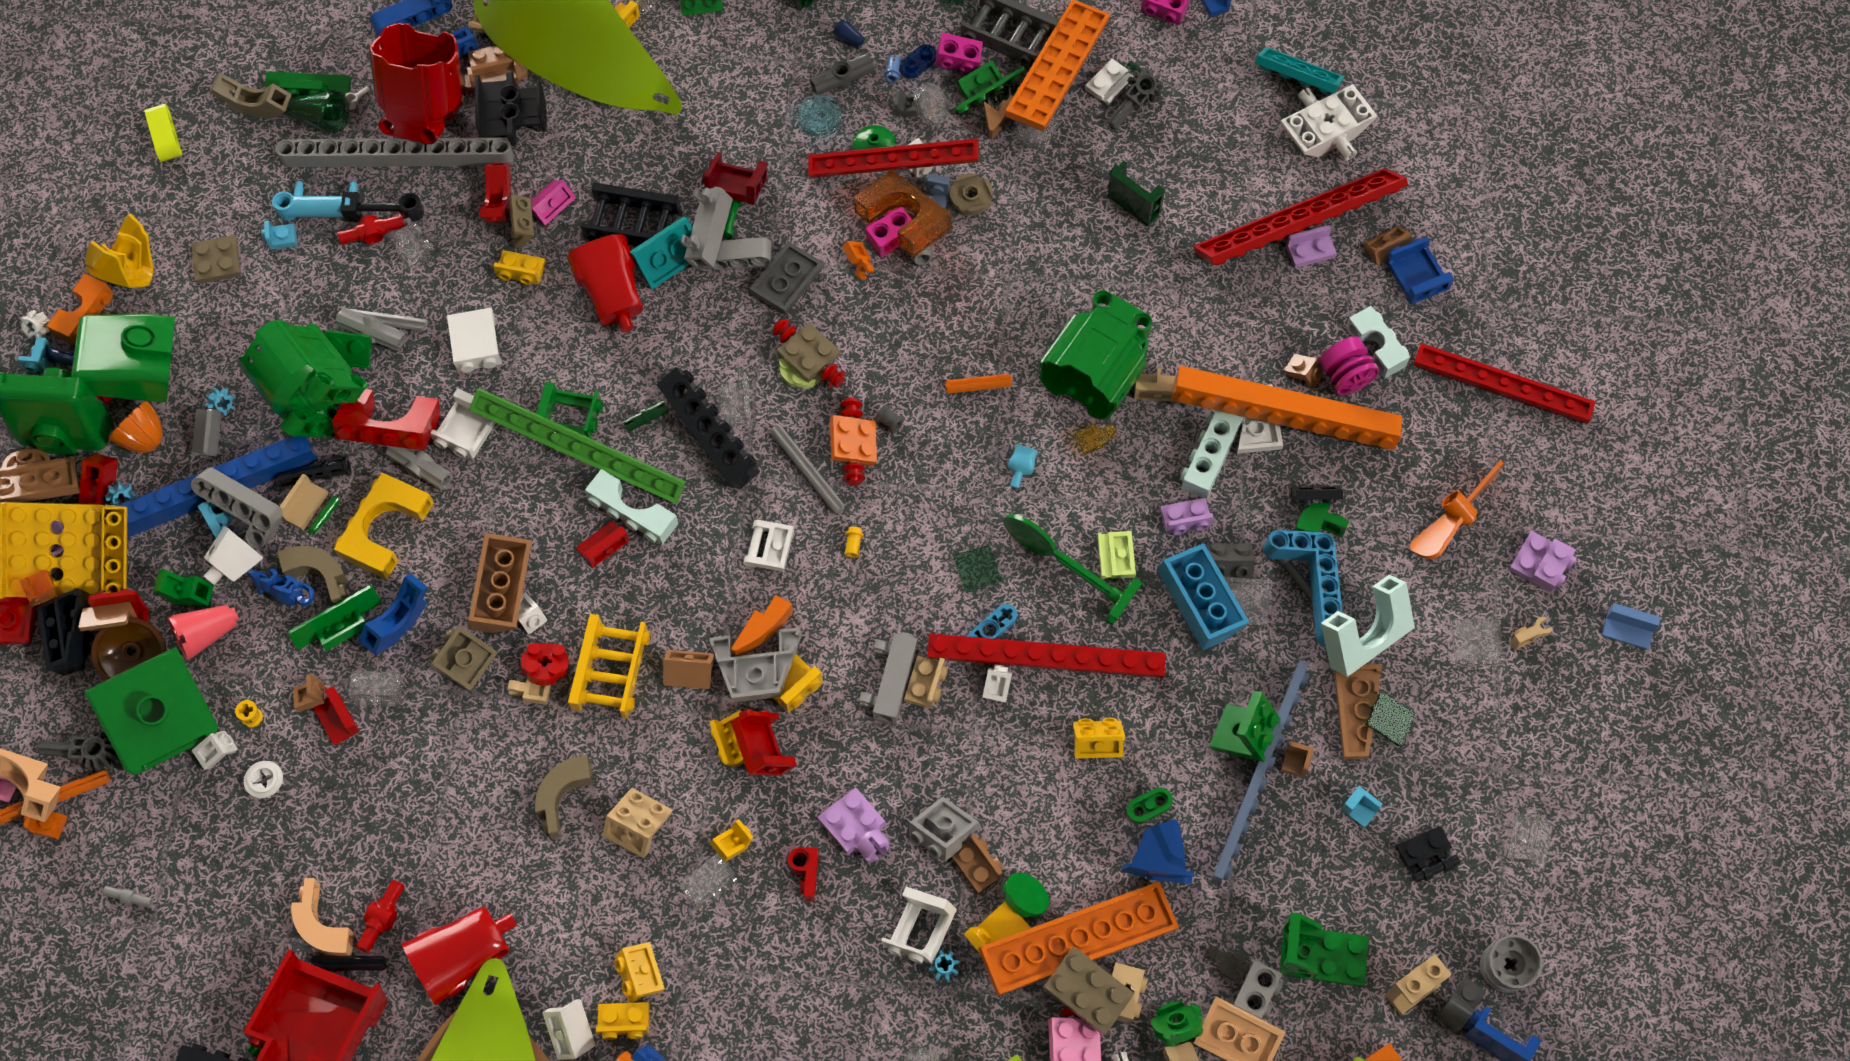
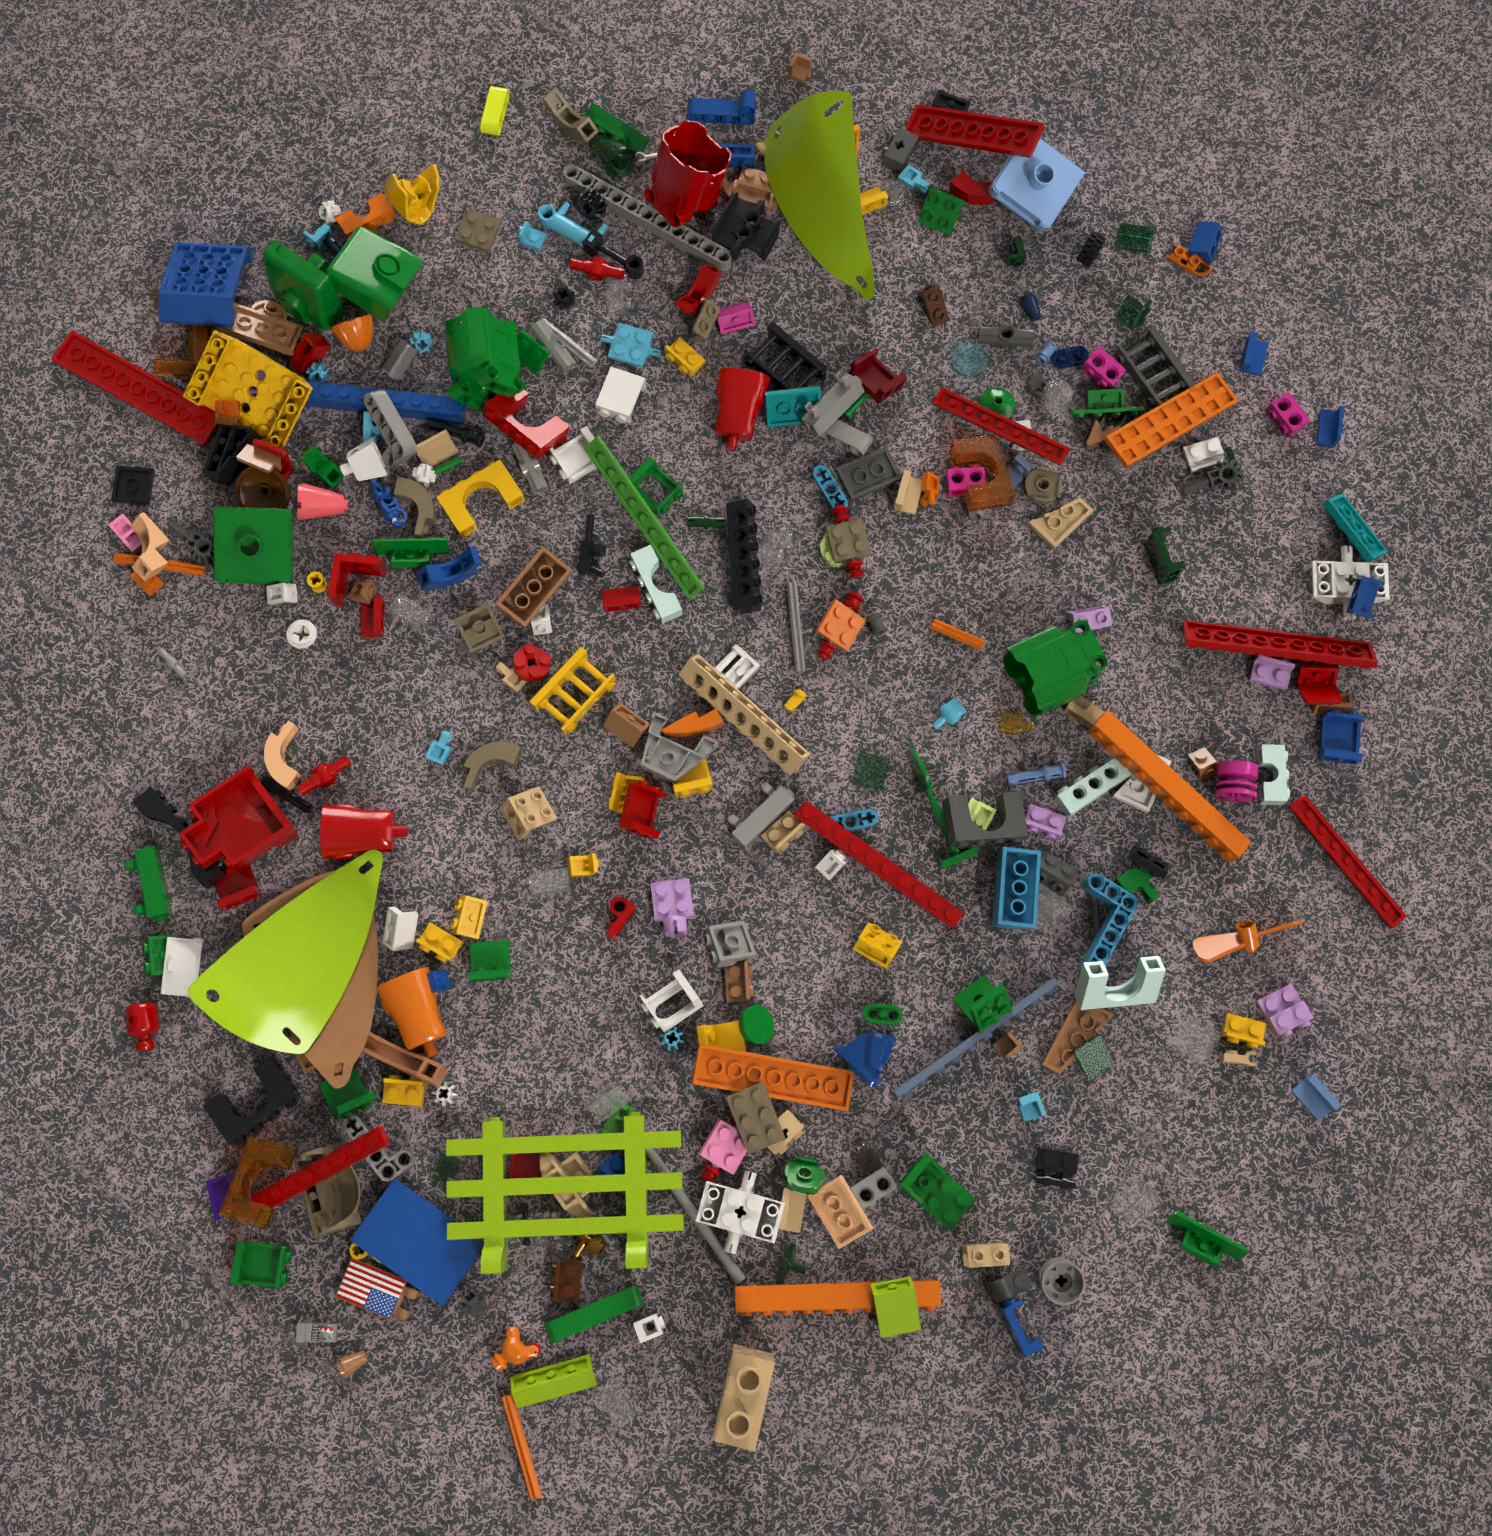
camera: 30 degrees right, 10 degrees up
(282, 669) = (351, 563): none -> red bracket
(305, 534) = (424, 474): none -> white gear
(327, 169) = (591, 204): none -> black gear
(353, 276) = (564, 298): none -> black gear
(454, 286) = (630, 345): none -> medium azure plate
(498, 813) = (439, 751): none -> medium azure plate
(538, 512) = (589, 550): none -> black piece
(692, 1005) = (490, 961): none -> green bracket
(750, 80) = (934, 304): none -> reddish brown bracket
(760, 323) = (819, 481): none -> dark azure beam
(820, 579) = (753, 715): none -> tan brick
(840, 275) = (908, 494): none -> tan panel
(1012, 220) = (1059, 524): none -> tan wing
(1111, 282) = (1096, 617): none -> lavender bracket
(1115, 569) = (964, 832): none -> dark grey arch
(1155, 468) = (1044, 773): none -> medium blue pin
(1352, 125) = (1363, 596): none -> blue panel
(1362, 231) = (1318, 684): none -> red bracket
(1517, 603) = (1243, 1030): none -> yellow bracket
(1622, 835) = (1205, 1242): none -> green bracket

